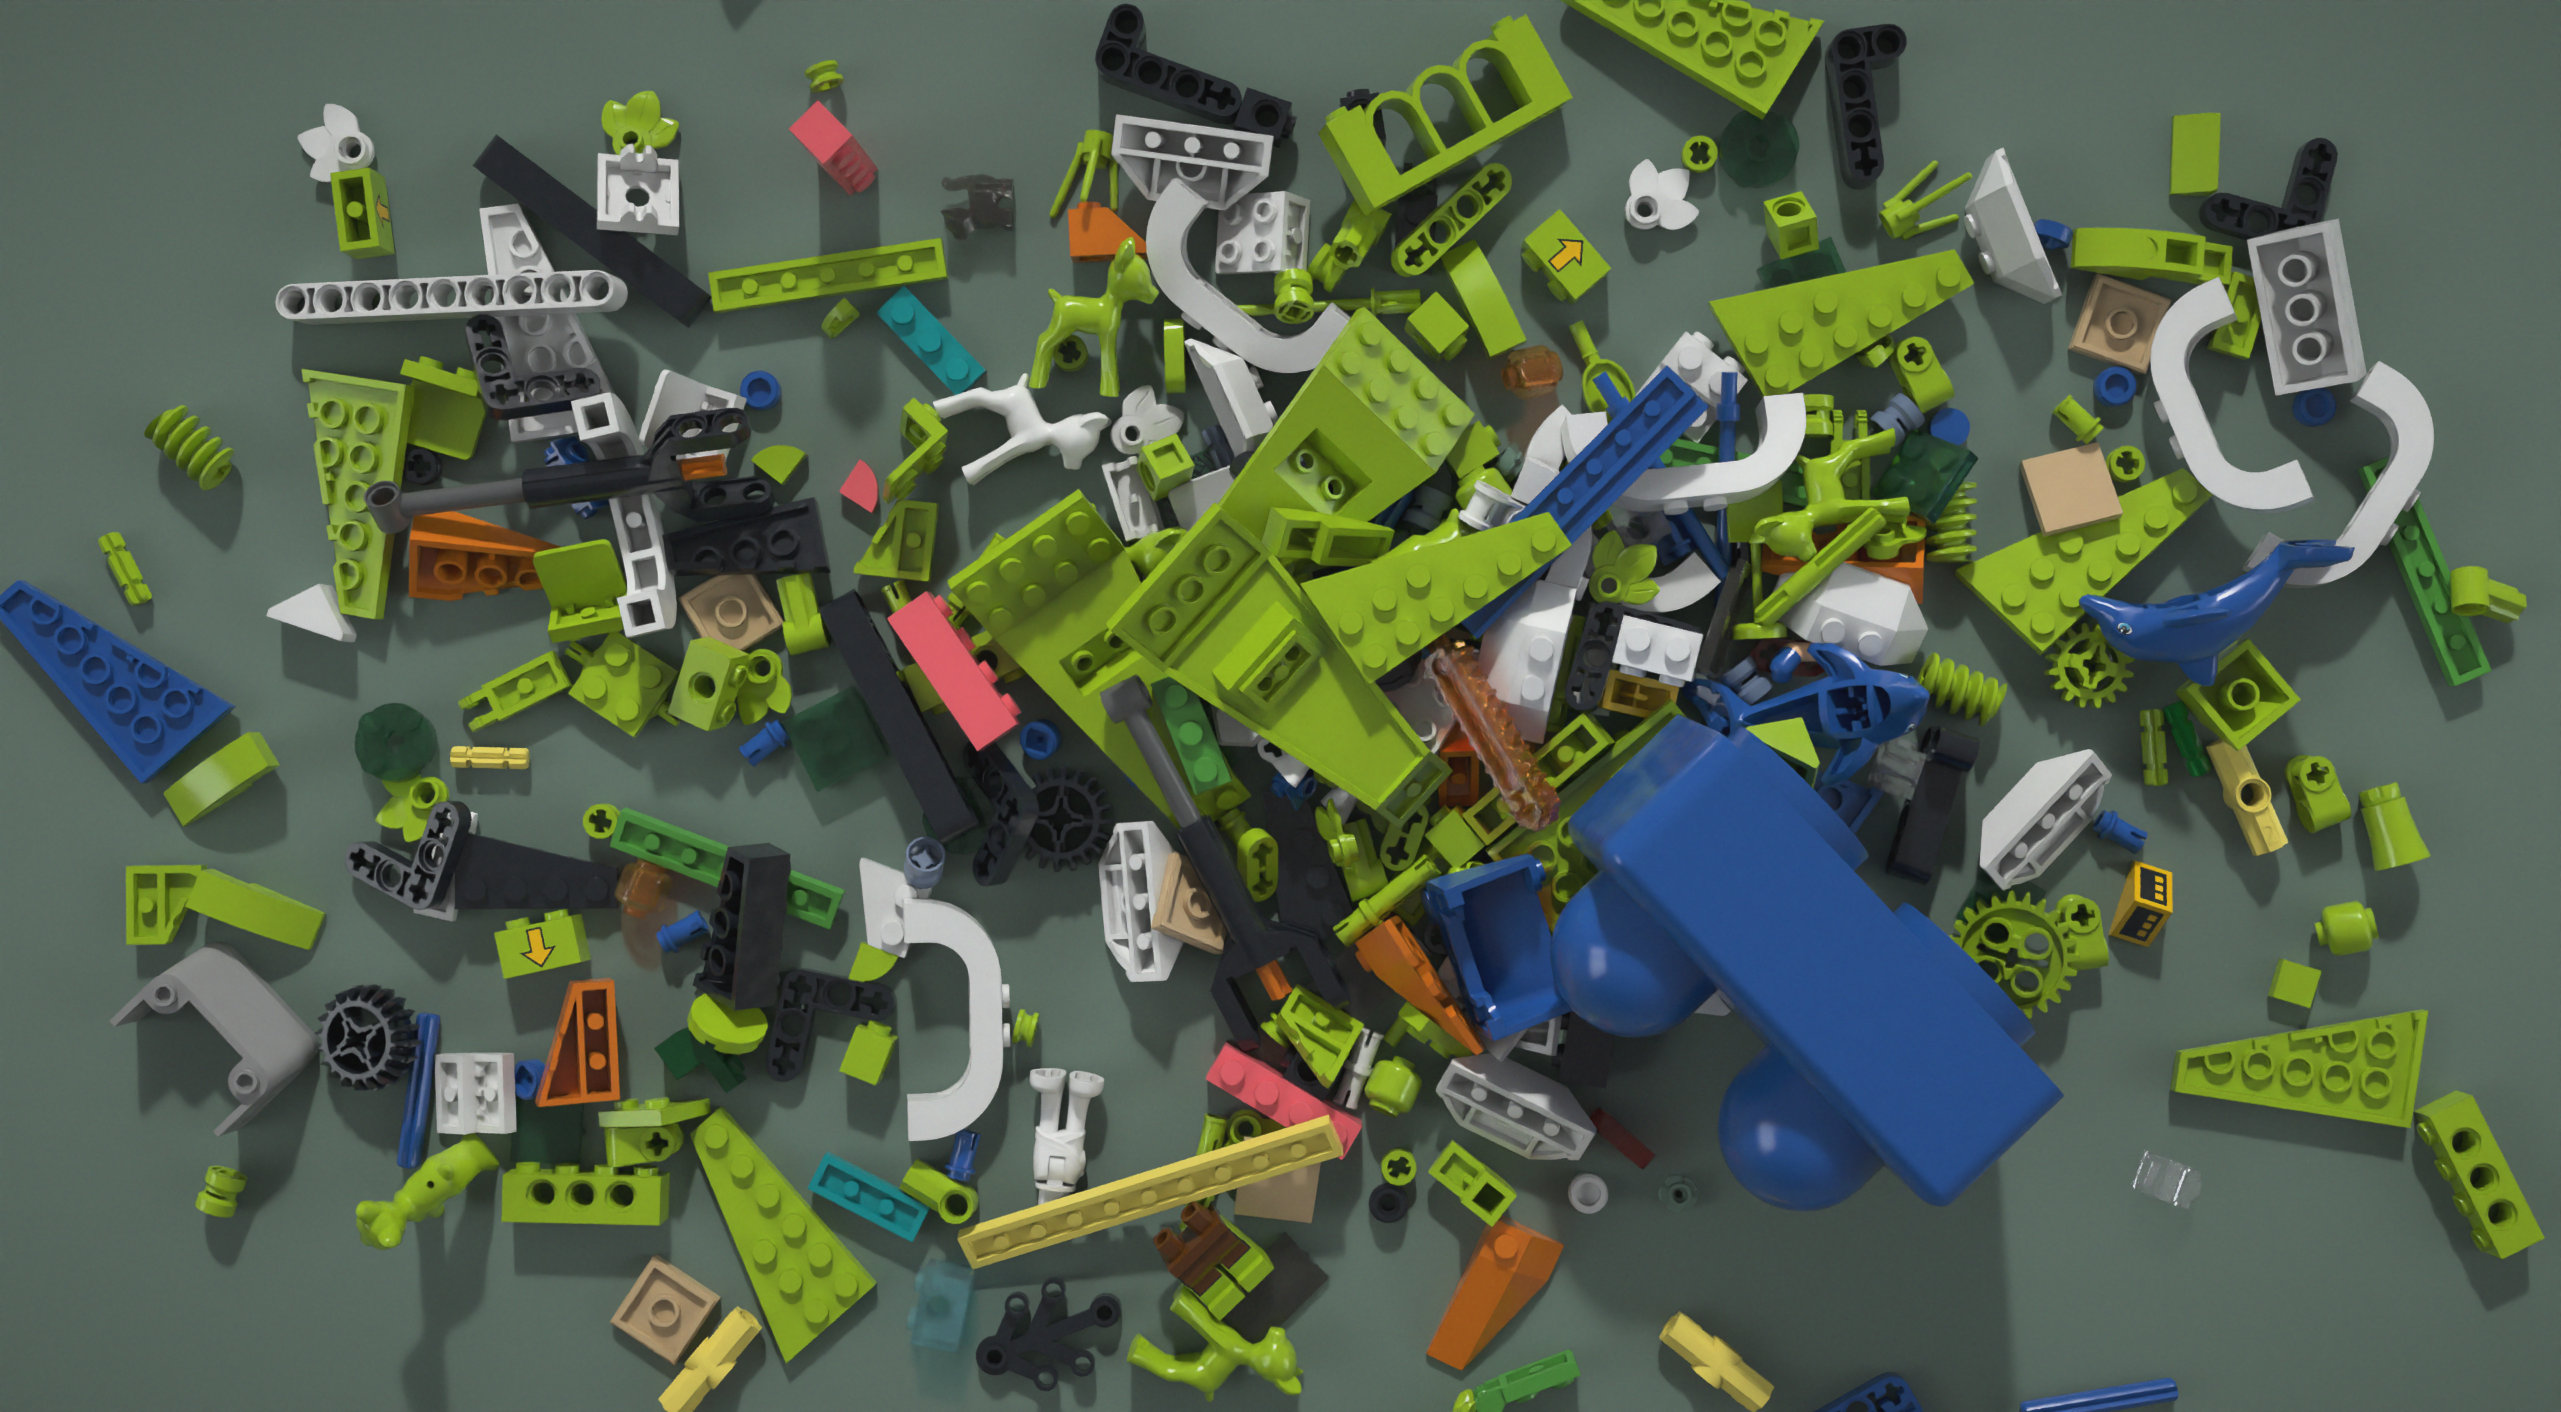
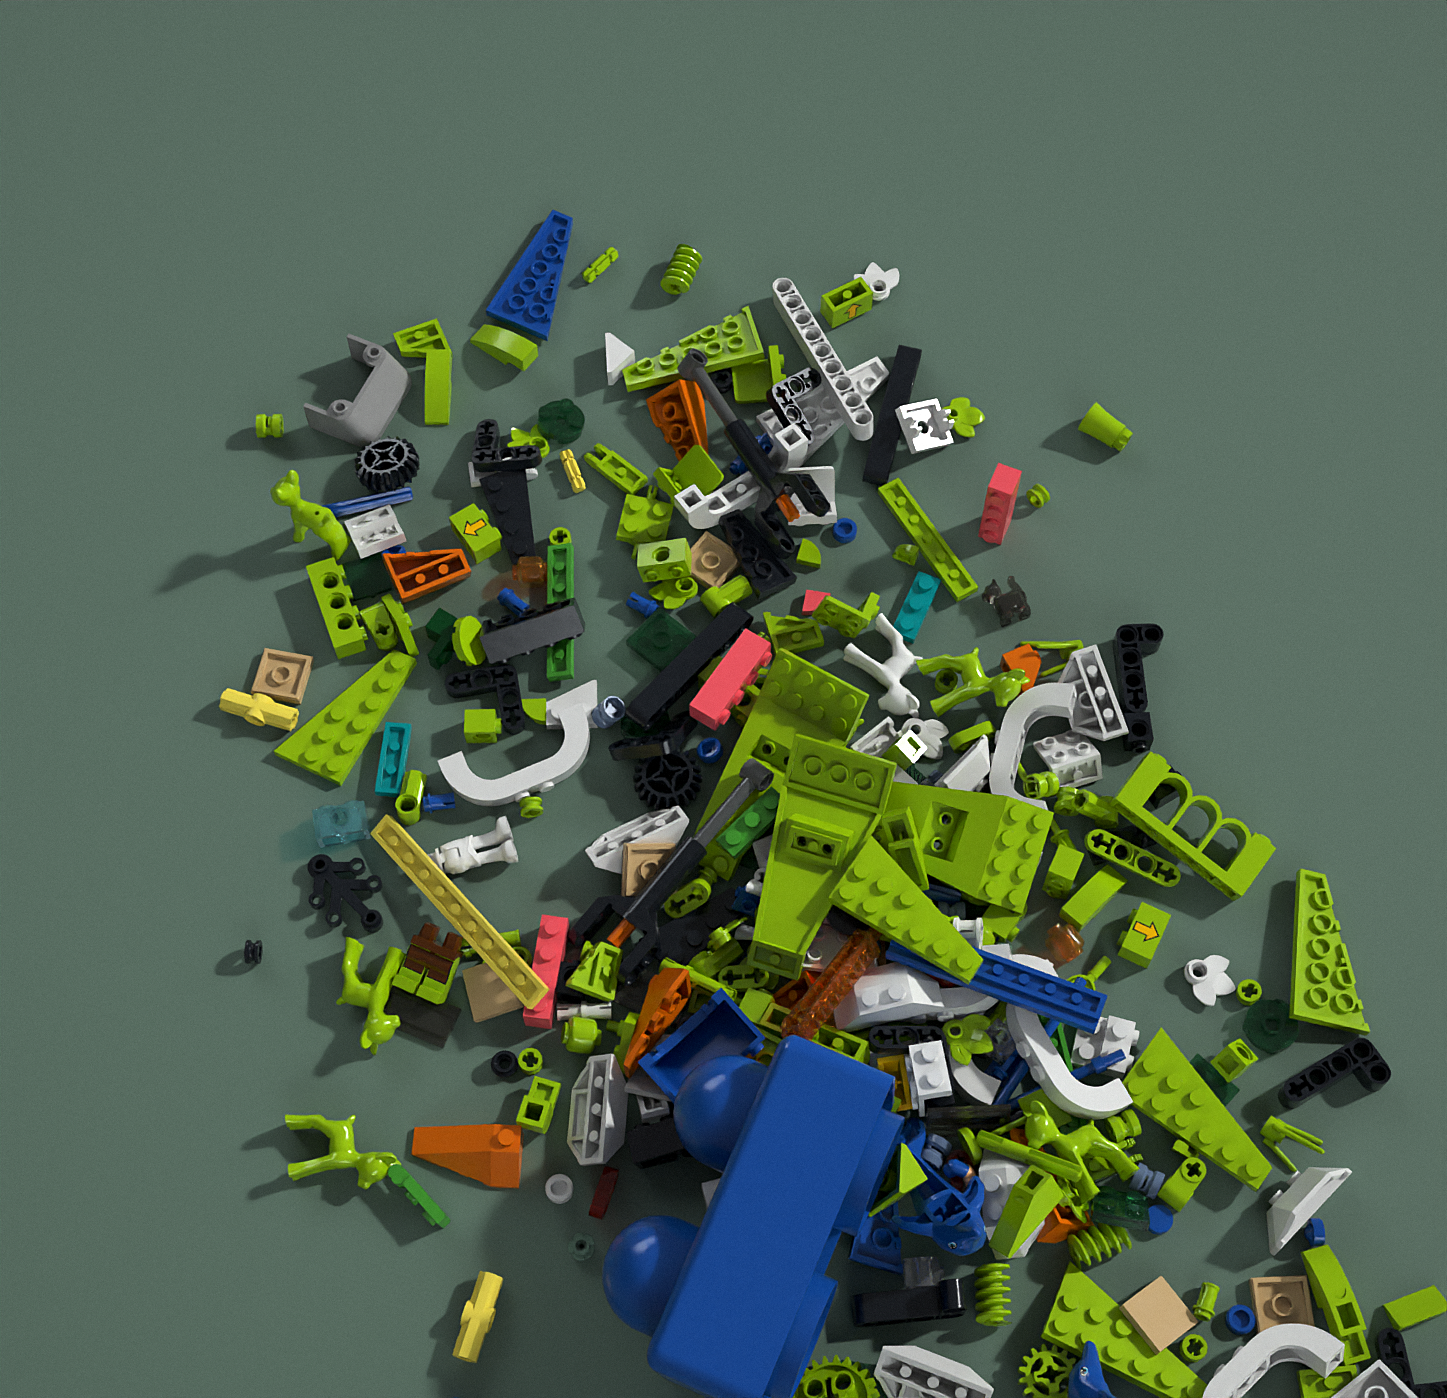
camera: 70 degrees right, 25 degrees down
(1897, 611) = (1025, 1209): none -> lime slope

